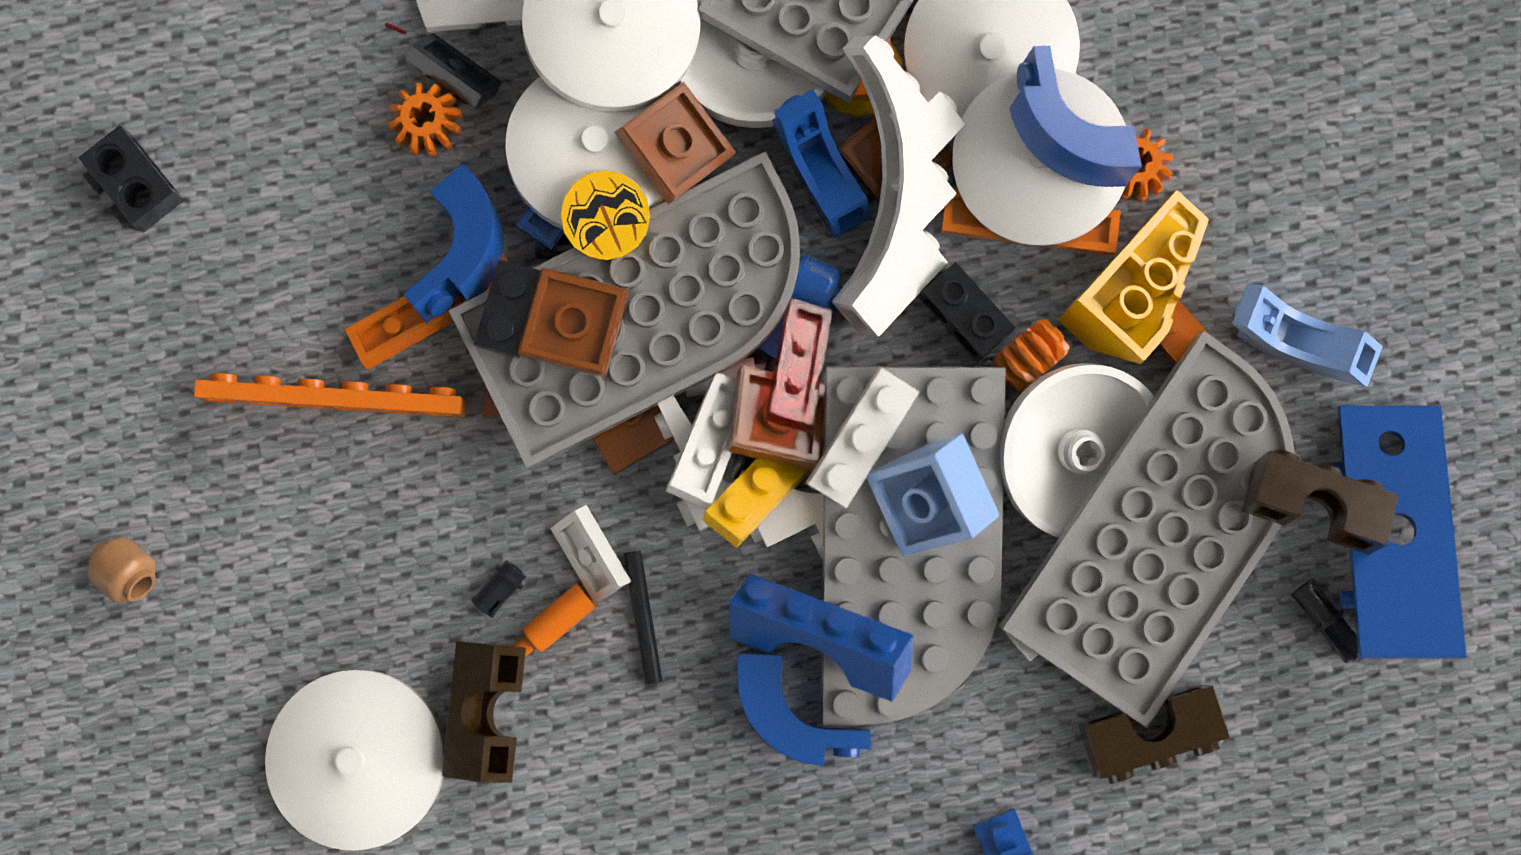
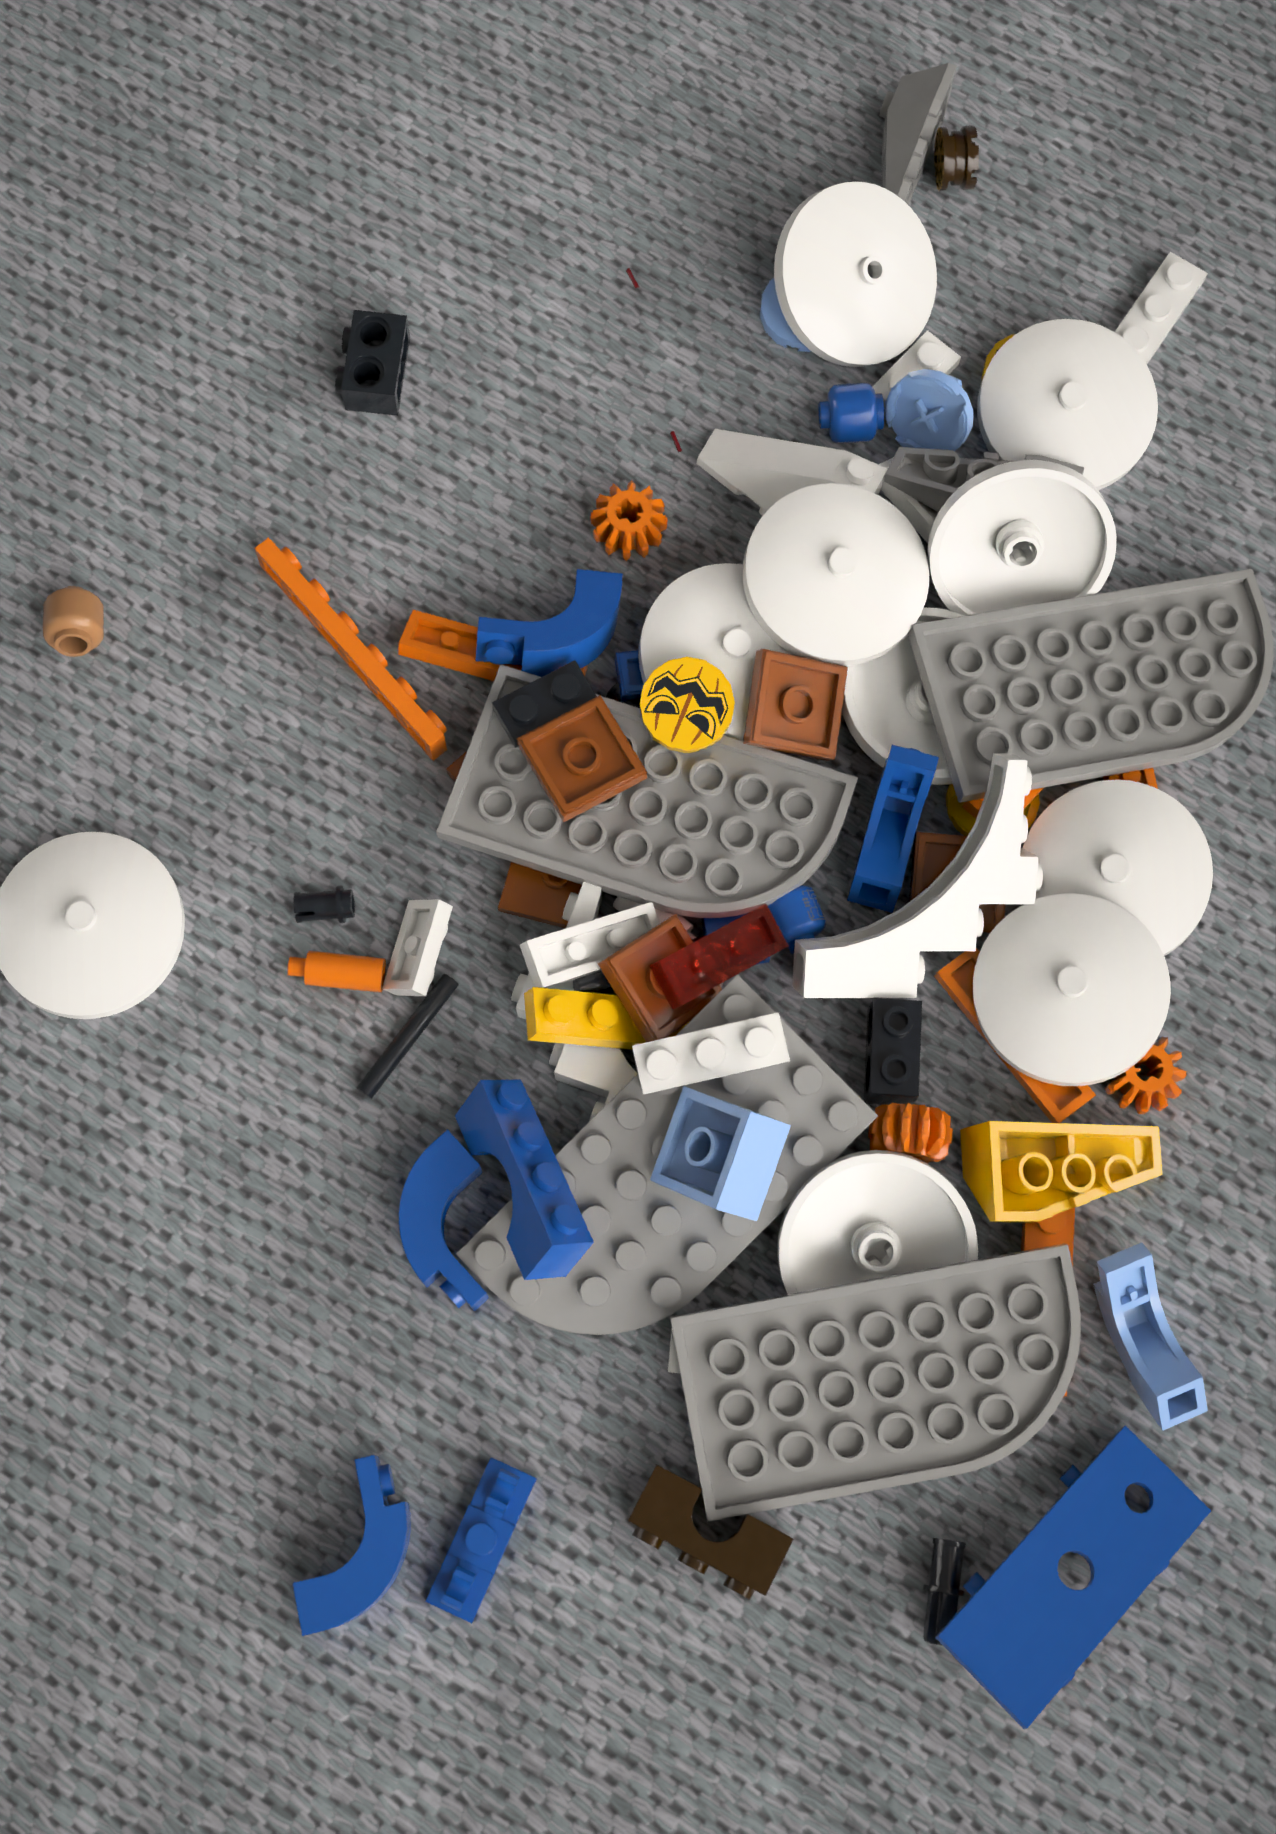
camera: 40 degrees right, 10 degrees down
(453, 70) = (686, 506): black plate -> none
(473, 744) = (184, 995): dark brown arch -> none
(1062, 139) = (1099, 985): arch -> none
(1357, 509) = (1055, 1512): dark brown arch -> none

